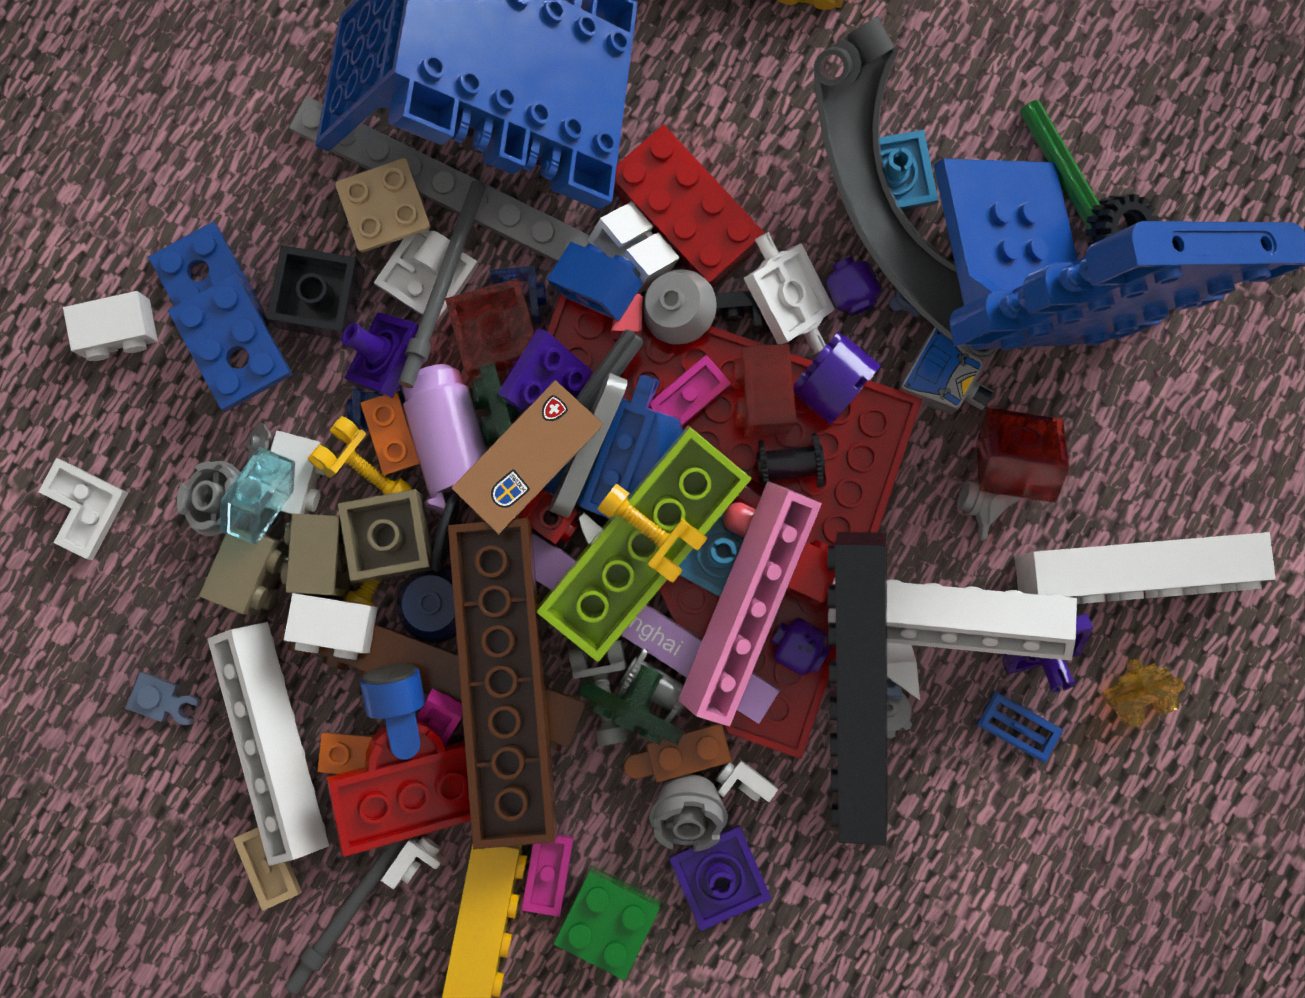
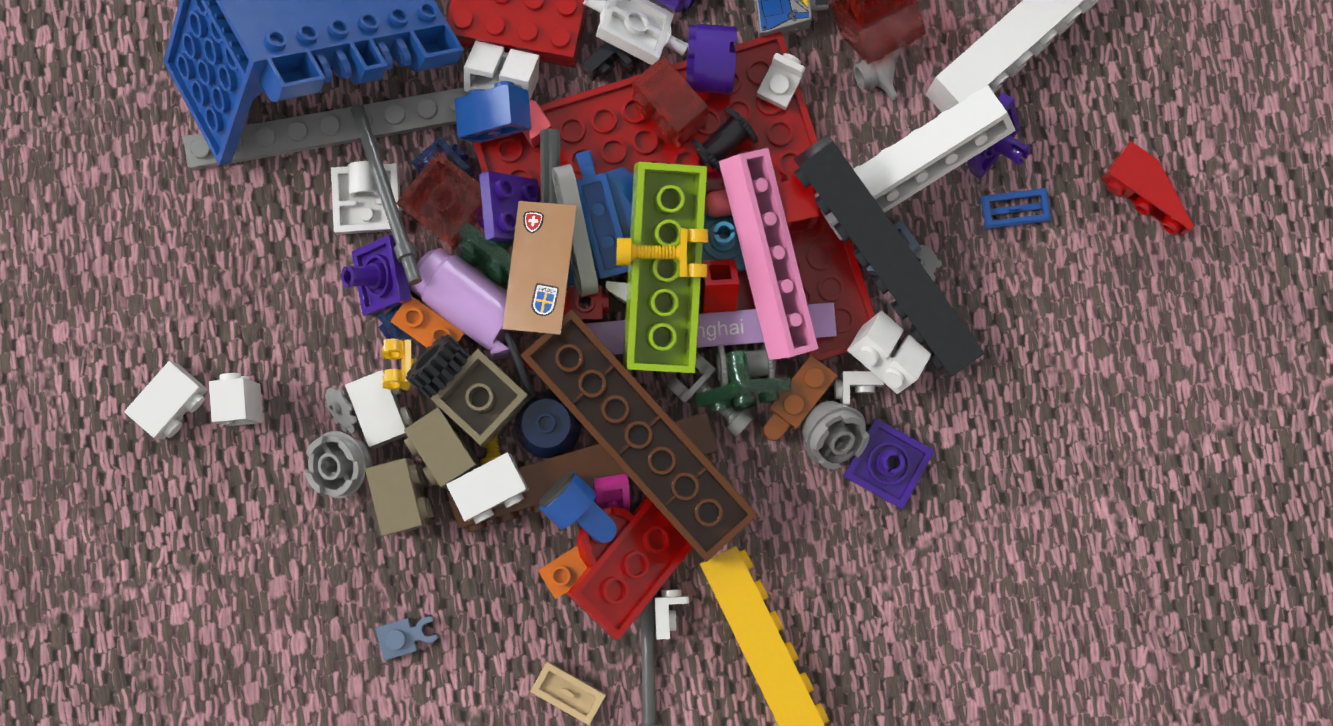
camera: 35 degrees left, 0 degrees up
(92, 504) = (249, 535): white plate -> none
(167, 371) = (235, 400): none -> white piece
(219, 317) = (242, 335): blue bracket -> none
(257, 495) = (369, 435): clear light blue piece -> none
(268, 743) = (504, 605): white brick -> none
(315, 292) = (298, 268): black brick -> none
(368, 477) = (437, 366): none -> black tyre
(383, 205) = (300, 171): tan bracket -> none
(548, 876) = (768, 550): dark pink plate -> none
(607, 922) = (834, 551): green brick -> none
(679, 306) = (565, 89): light grey cone -> none
(685, 597) = (720, 287): none -> red brick
(692, 391) = (618, 141): dark pink plate -> none
(786, 765) = (876, 351): none -> white piece
(800, 646) = (825, 261): dark purple head -> none
(887, 445) = (781, 80): none -> white bracket
(903, 667) = (907, 224): white sticker -> none
(1142, 688) = (1077, 119): clear yellow hips -> none
(1161, 799) = (1145, 183): none -> red slope

